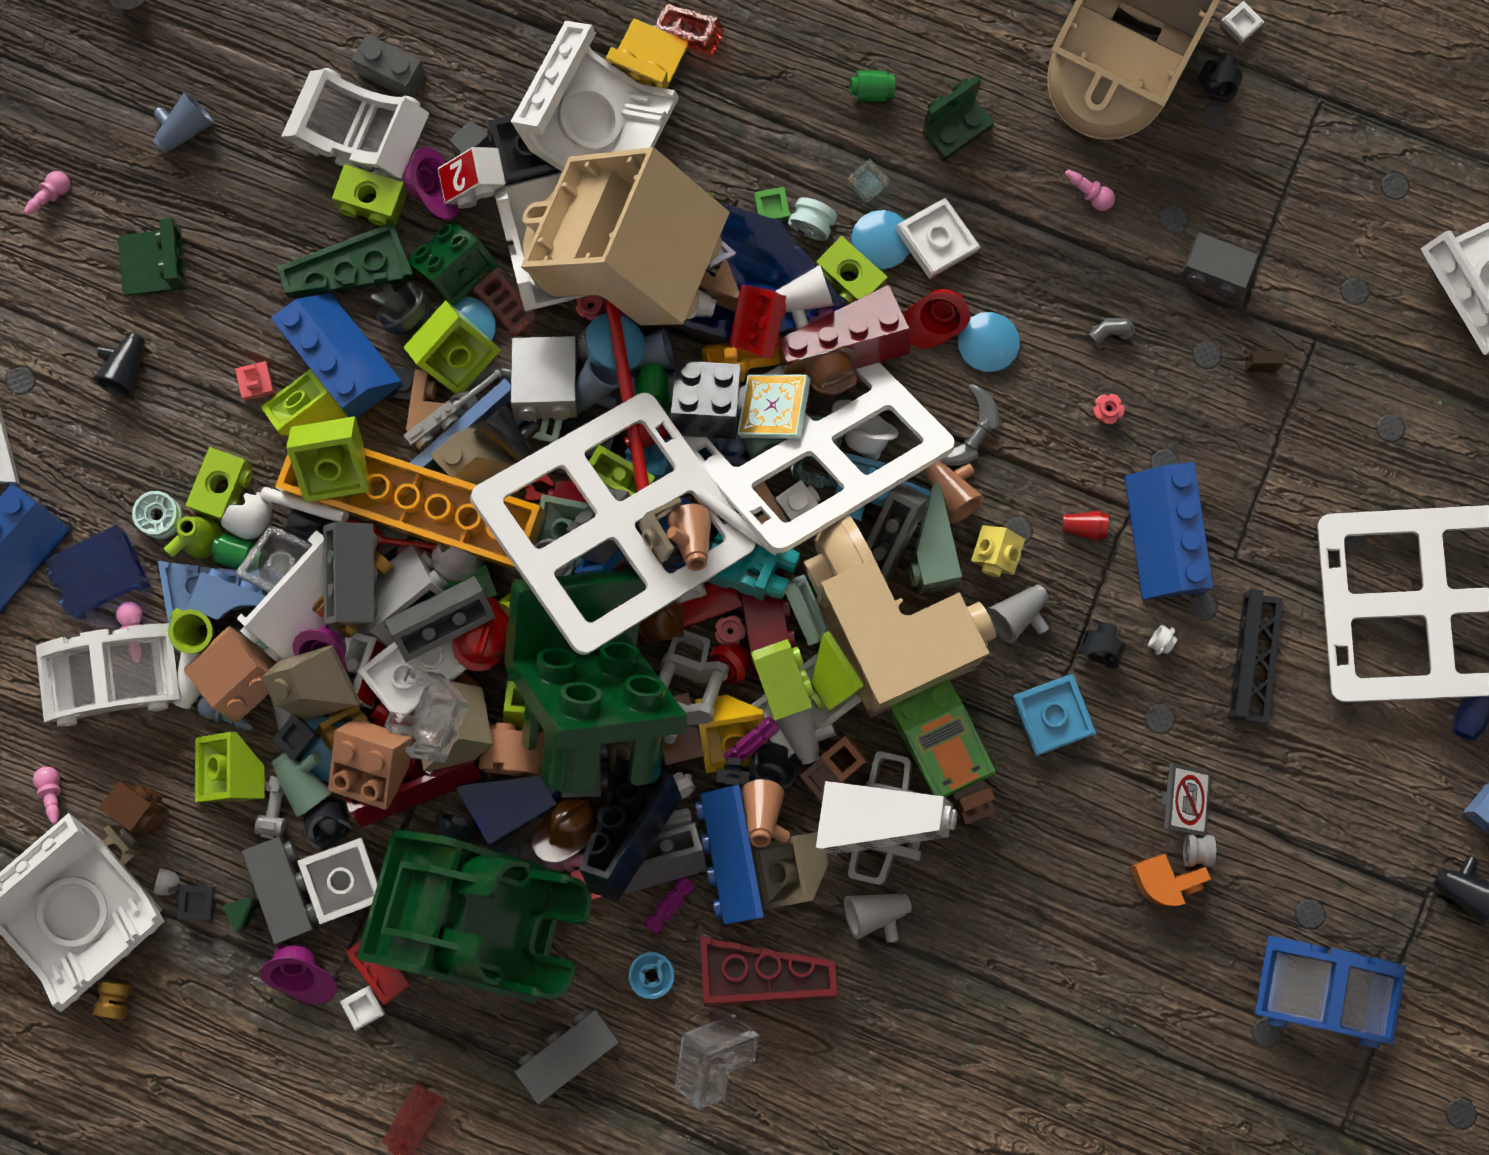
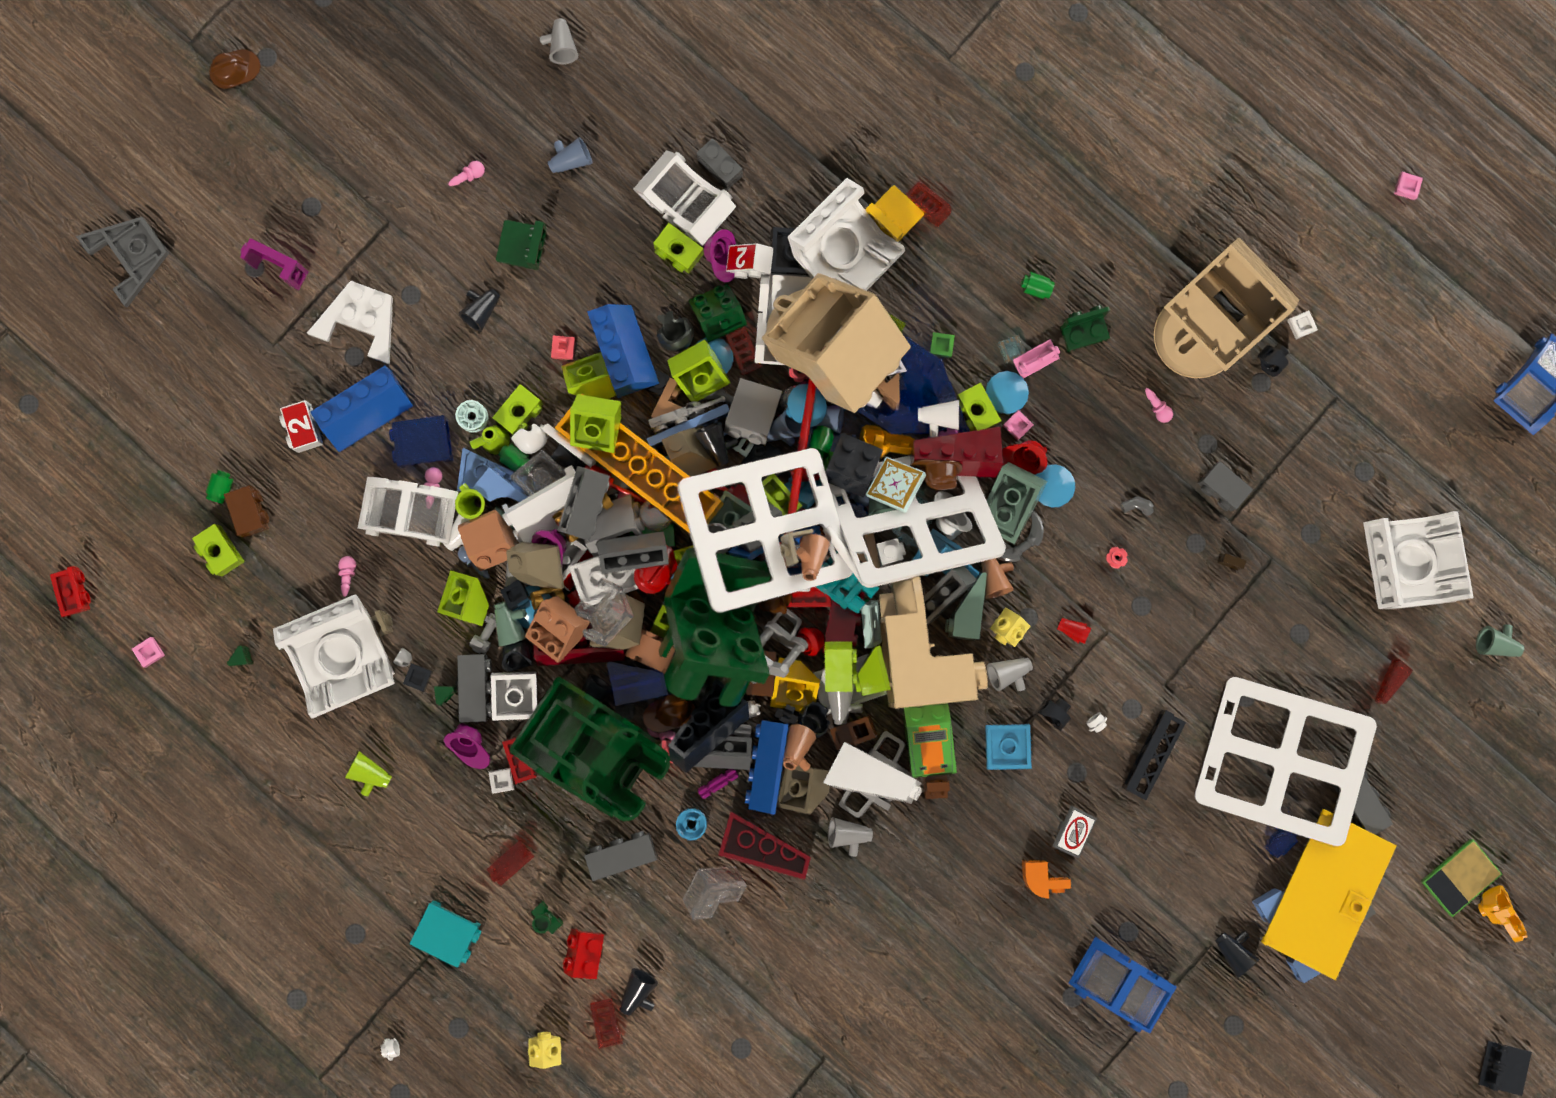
camera: 15 degrees right, 5 degrees up
(112, 991) = (345, 721): pearl gold wheel -> none
(135, 807) = (398, 604): reddish brown brick -> none
(167, 1061) = (367, 772): none -> lime piece
(353, 263) = (653, 291): dark green wing -> none
(469, 136) = (756, 232): dark grey slope -> none
(724, 624) = (823, 621): coral plate -> none
(753, 739) = (807, 697): magenta axle -> none
(758, 321) = (905, 424): red bracket -> none
(813, 218) = (965, 364): light aqua wheel -> none
(906, 181) = (1036, 358): none -> bright pink hinge
(910, 279) = (1018, 425): none -> bright pink tile
(937, 238) = (1044, 404): white plate -> none
(942, 376) = (1014, 499): none -> sand green slope
(1168, 531) = (1126, 653): blue slope -> none
(1199, 851) = (1070, 867): light grey wheel -> none

